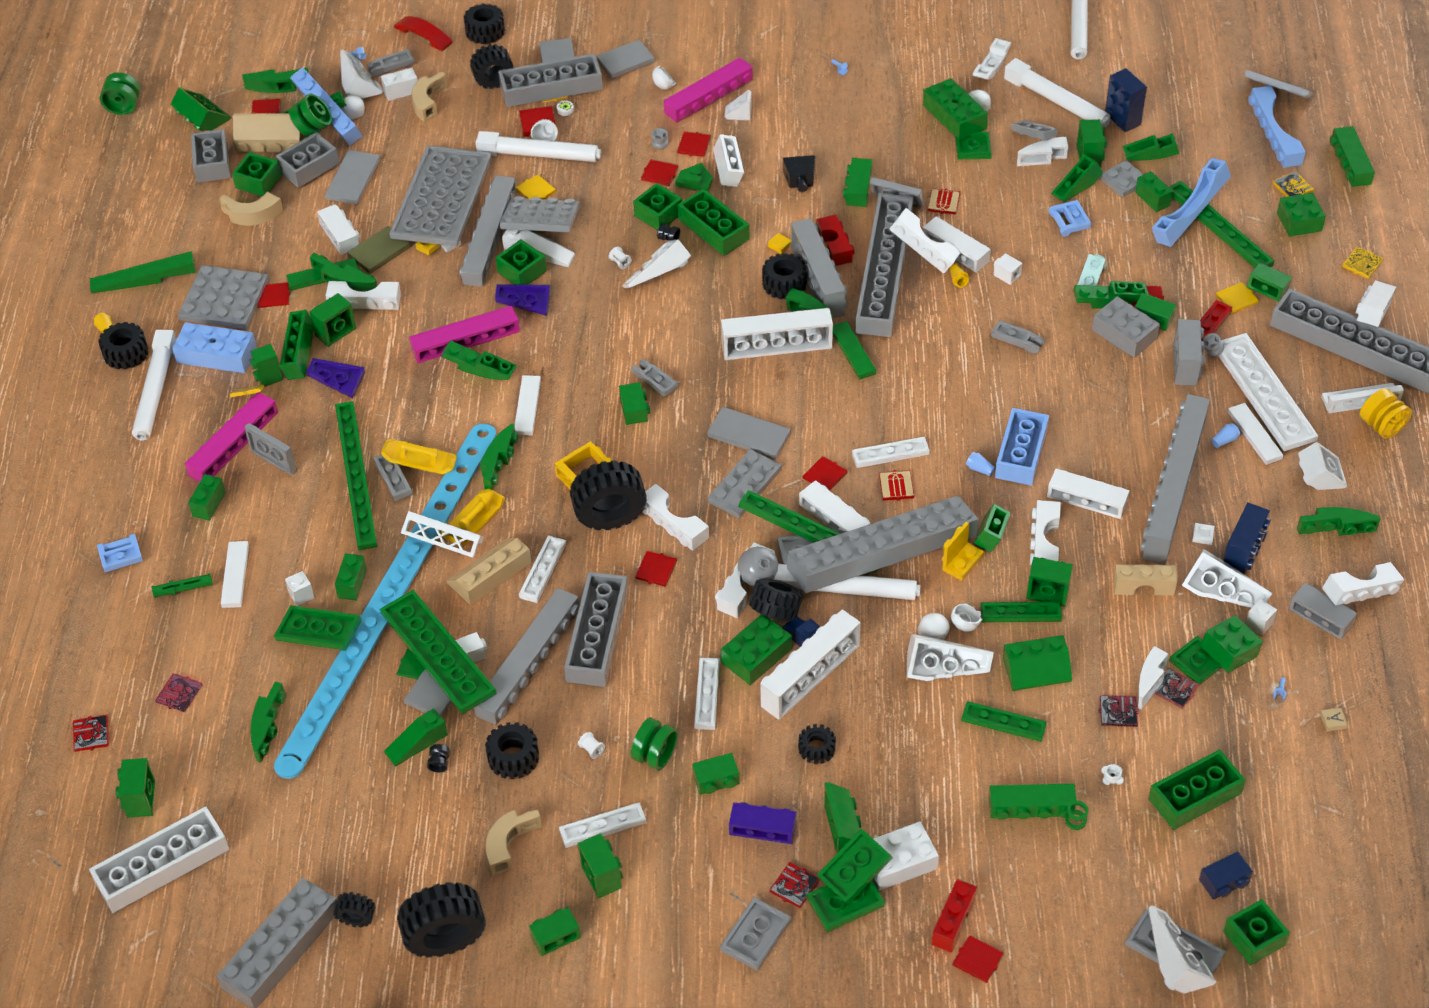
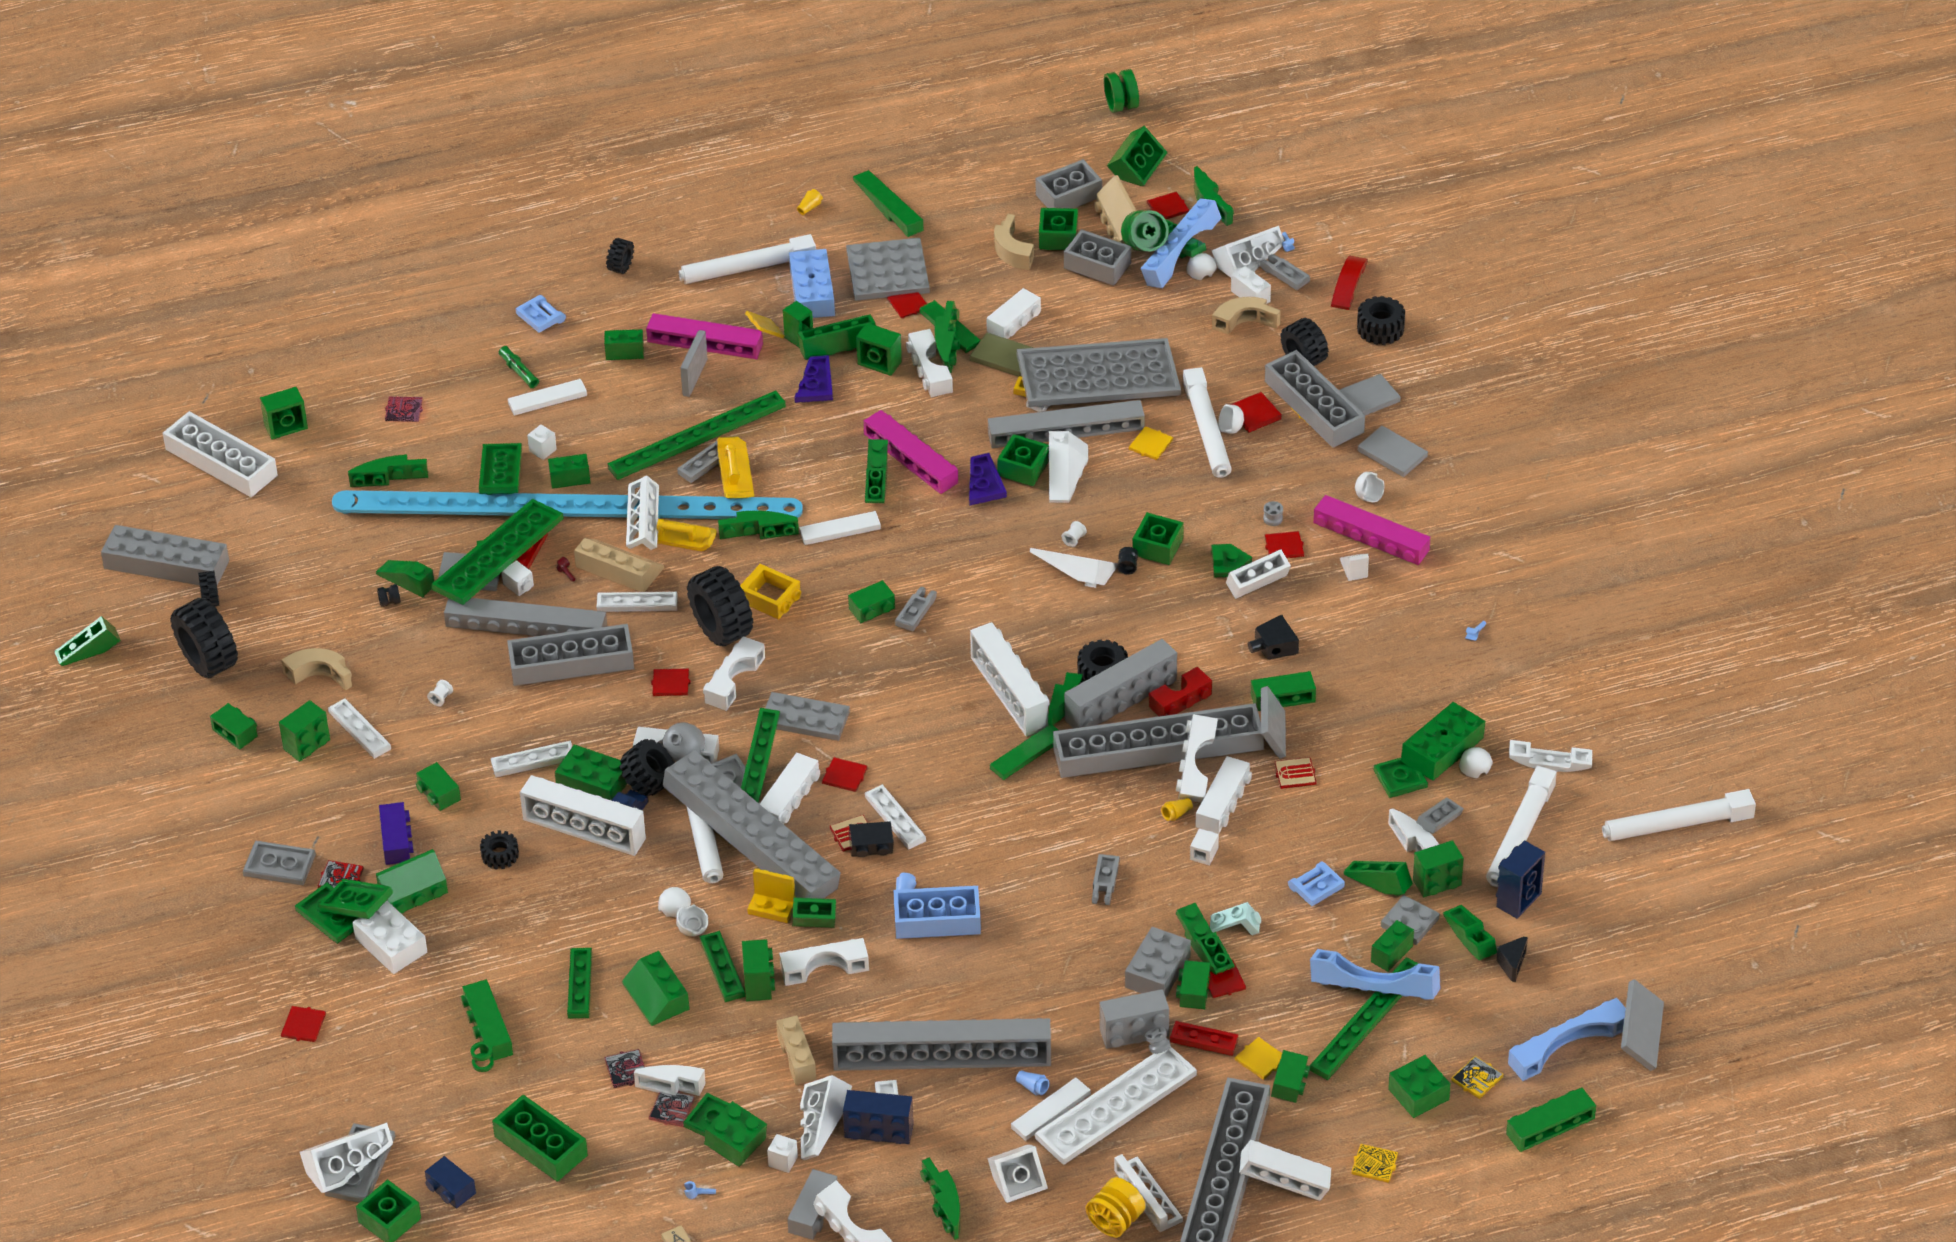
camera: 70 degrees right, 5 degrees down
(89, 470) = (620, 255): none -> black tyre
(90, 733) = (341, 370): piece -> none
(123, 345) = (784, 221): black tyre -> none
(352, 177) = (1099, 301): light grey tile -> none
(467, 614) = (562, 566): none -> dark red hand
(512, 764) = (411, 639): black tyre -> none
(540, 214) = (1098, 451): light grey plate -> none
(565, 108) = (1286, 427): white tile -> none
(654, 743) = (448, 729): green wheel -> none
(659, 172) = (1225, 530): red piece -> none
(713, 222) = (1156, 588): green brick -> none
(749, 432) = (874, 701): light grey tile -> none
(918, 470) = (871, 839): none -> black brick
(937, 658) = (634, 912): white wedge -> none
(953, 914) = (352, 988): red arch -> none
(1088, 493) = (898, 982): white brick -> none
(1112, 770) = (542, 1076): white plate -> none
(1188, 133) = (1511, 956): none -> black slope

